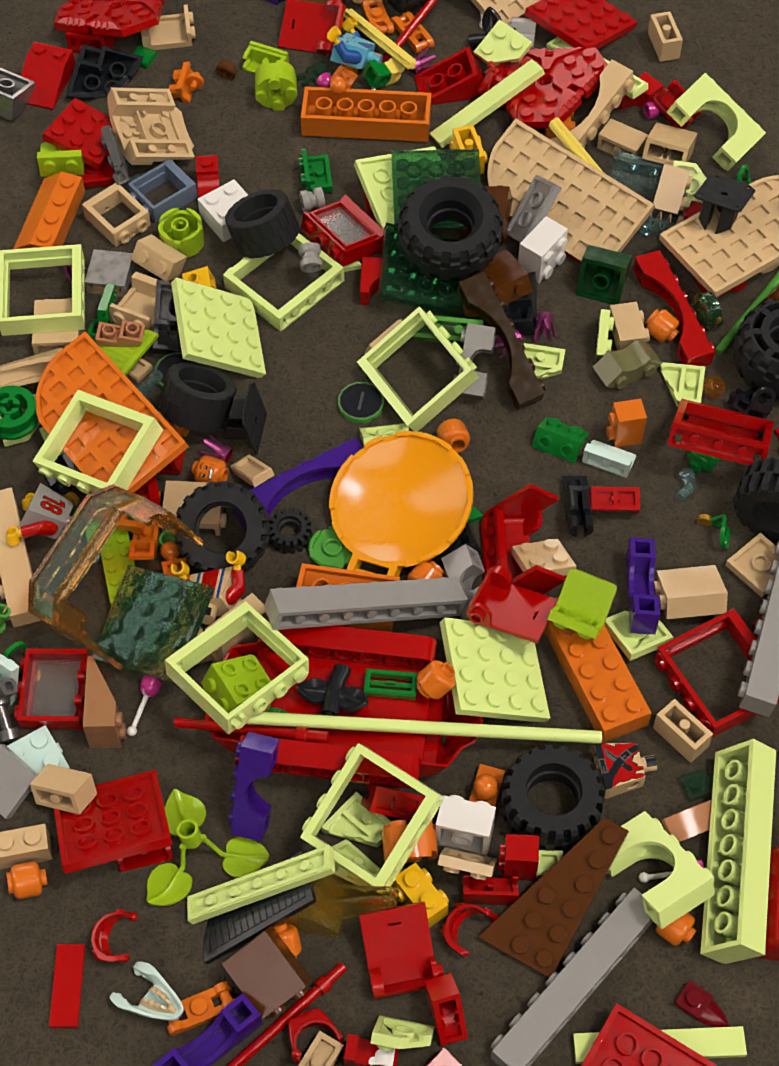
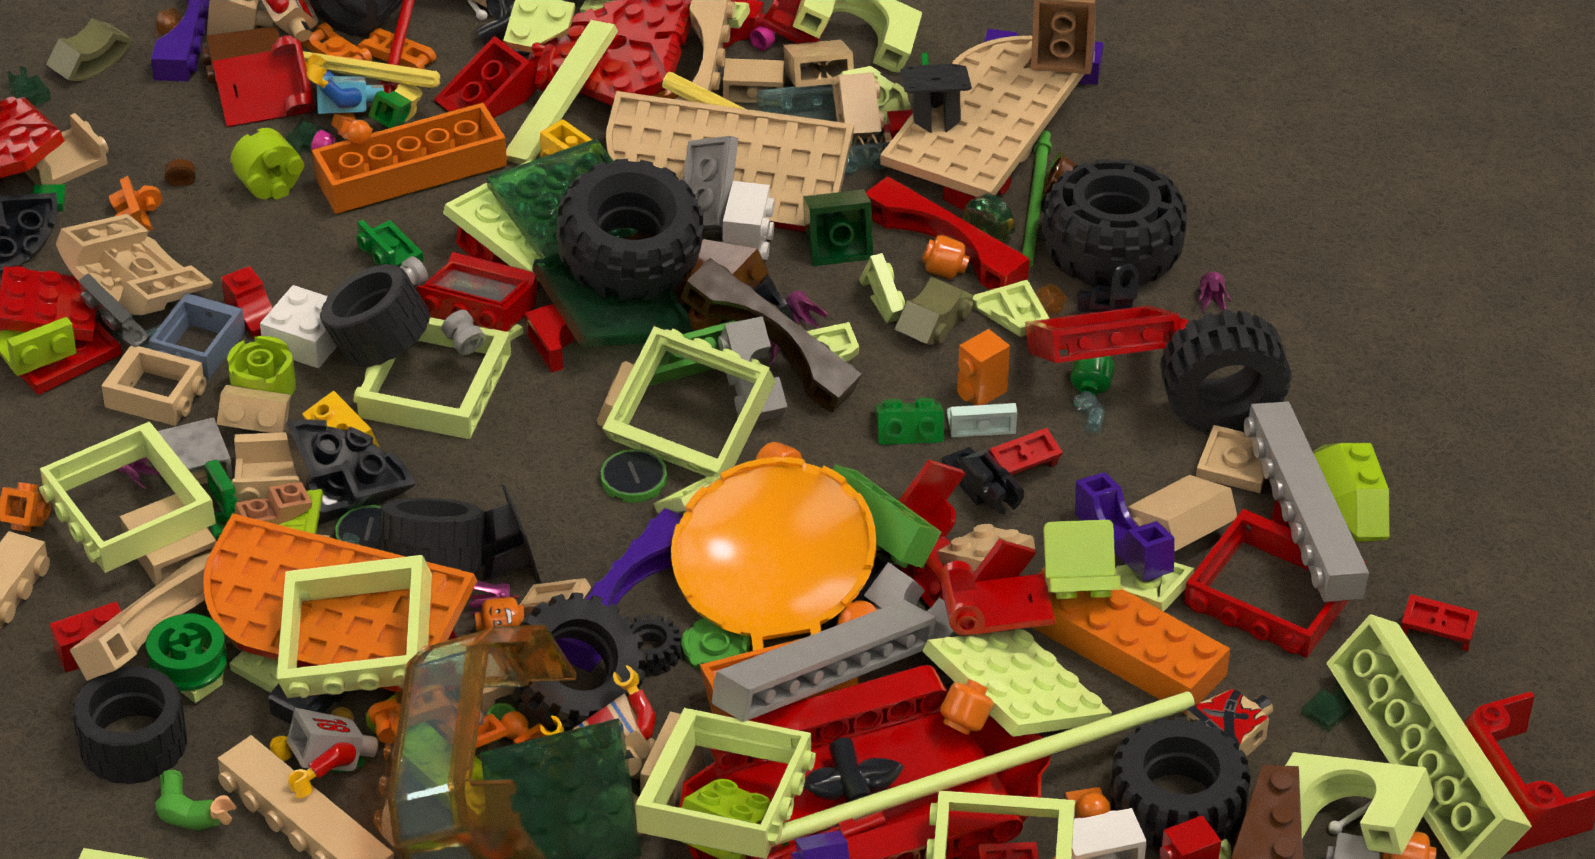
camera: 30 degrees left, 15 degrees down
(52, 211) = (60, 408): orange slope -> none
(217, 328) = (401, 452): yellowish green plate -> none
(260, 53) = (217, 142): lime hinge -> none
(391, 685) = (912, 745): green tile -> none
(422, 64) = (432, 92): flat silver piece -> none
(488, 513) = (896, 526): none -> bright green brick
(628, 324) = (909, 269): tan brick -> none
(682, 730) = (1275, 656): tan brick -> none
(689, 822) = (1351, 741): nougat slope -> none
(707, 520) = (1143, 438): green piece -> none

